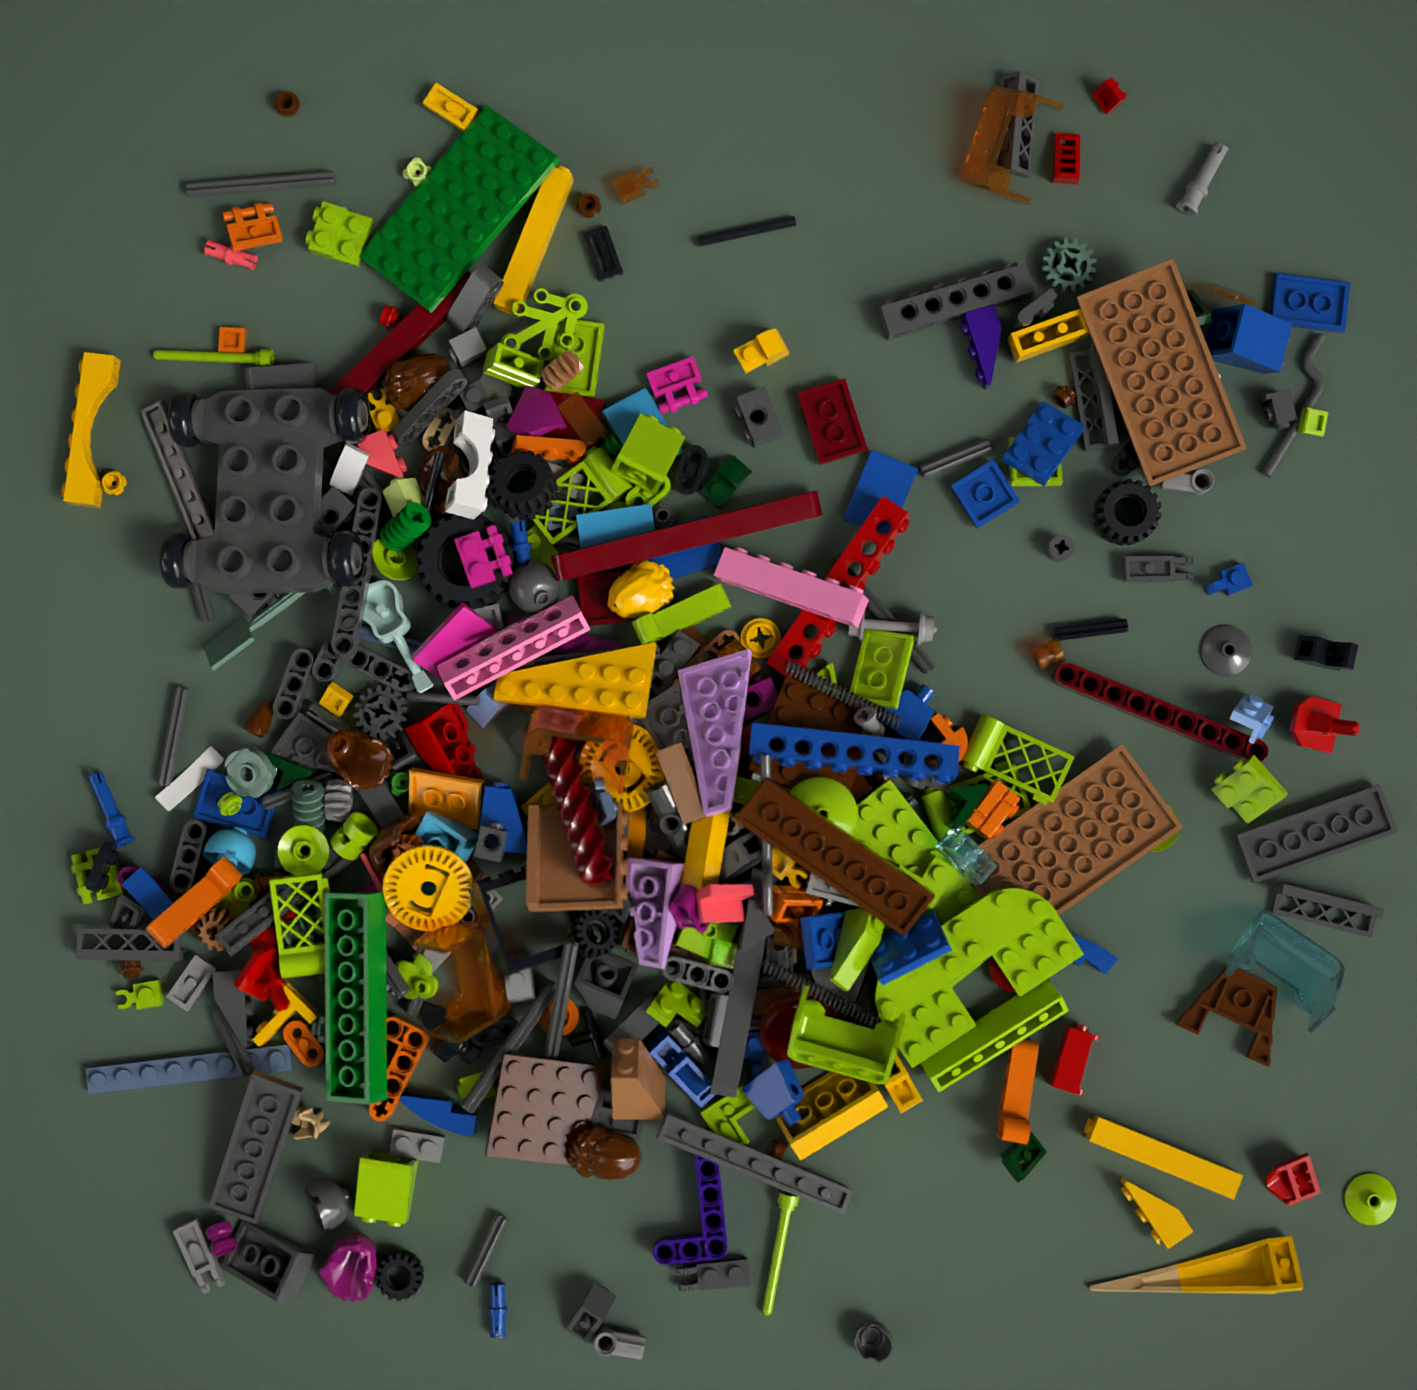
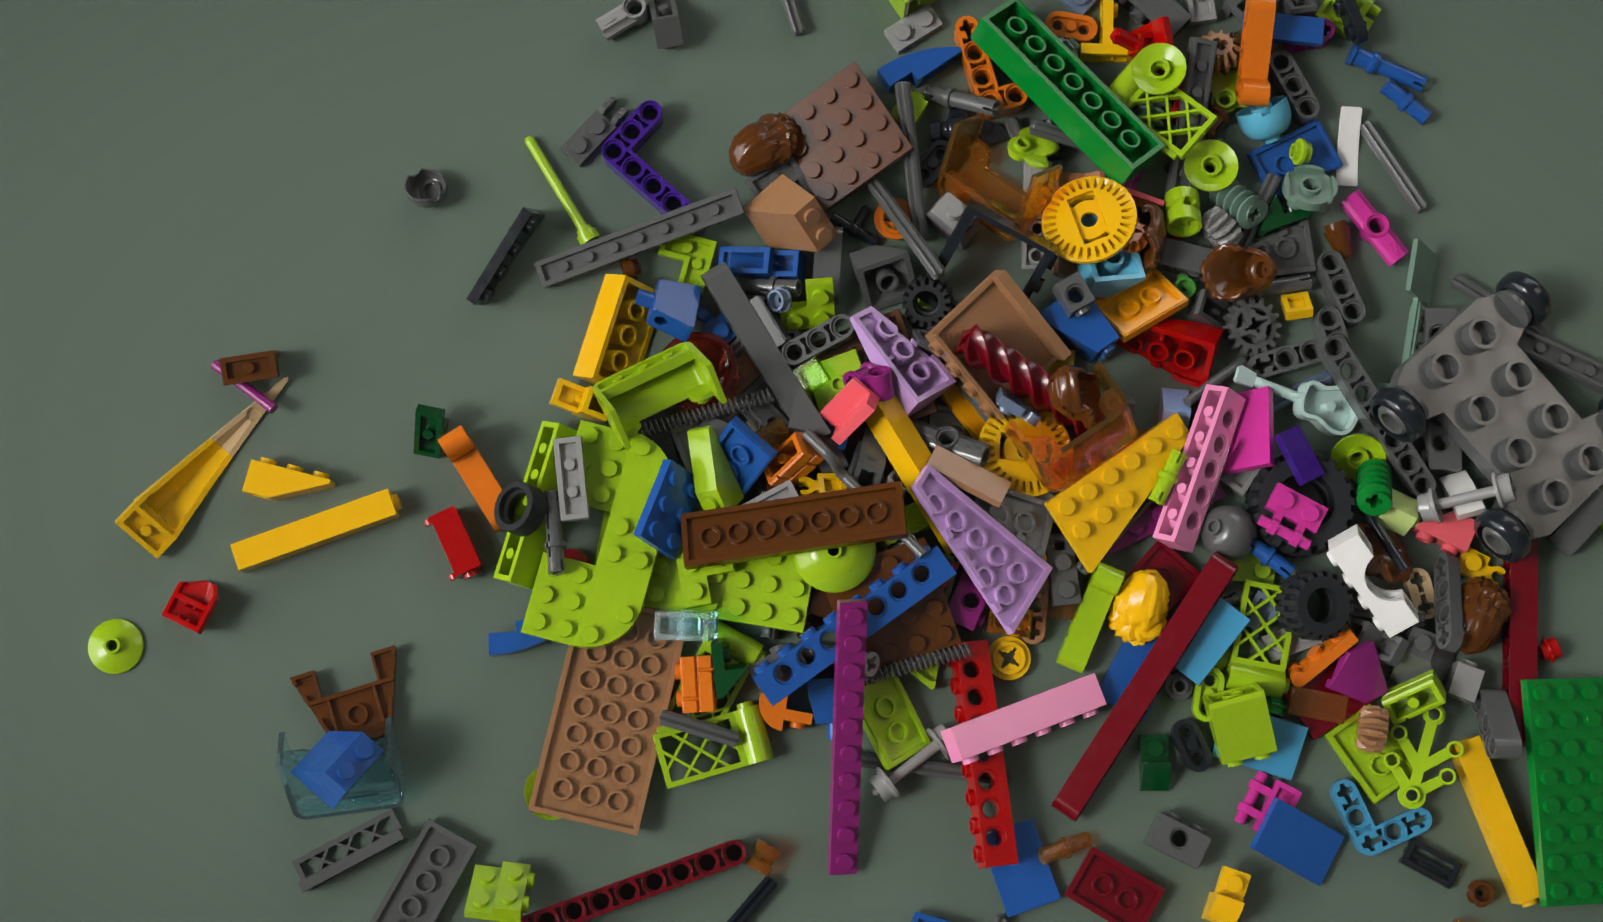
camera: 135 degrees right, 5 degrees down
(119, 774) = (1405, 101): none -> blue pin
(230, 687) = (1384, 242): none -> dark pink piece
(274, 964) = (1158, 57): none -> lime dish
(379, 479) = (1431, 507): none -> light grey piece
(438, 593) = (1299, 455): none -> dark purple slope
(438, 1066) = (952, 98): none -> dark grey pin
(542, 660) = (1167, 477): none -> lime pin
(557, 771) = (1076, 394): none -> reddish brown piece
(623, 311) = (1367, 826): none -> dark azure beam
(680, 345) = (1297, 841): none -> blue tile
(696, 1028) = (779, 299): none -> sand blue plate
(839, 479) = (1064, 848): none -> clear orange axle
(859, 1239) = (509, 248): none -> black wing
(923, 682) = (847, 736): none -> magenta plate
(957, 1030) = (571, 479): none -> light grey plate
(1007, 995) = (555, 541): none -> dark grey pin
(1017, 778) = (699, 728): none -> dark grey axle
(1020, 1051) = (533, 514): none -> black tyre
(1112, 1318) = (249, 367): none -> reddish brown panel
(1126, 1308) = (250, 391): none -> magenta bar
(1290, 974) = (337, 764): none -> blue slope

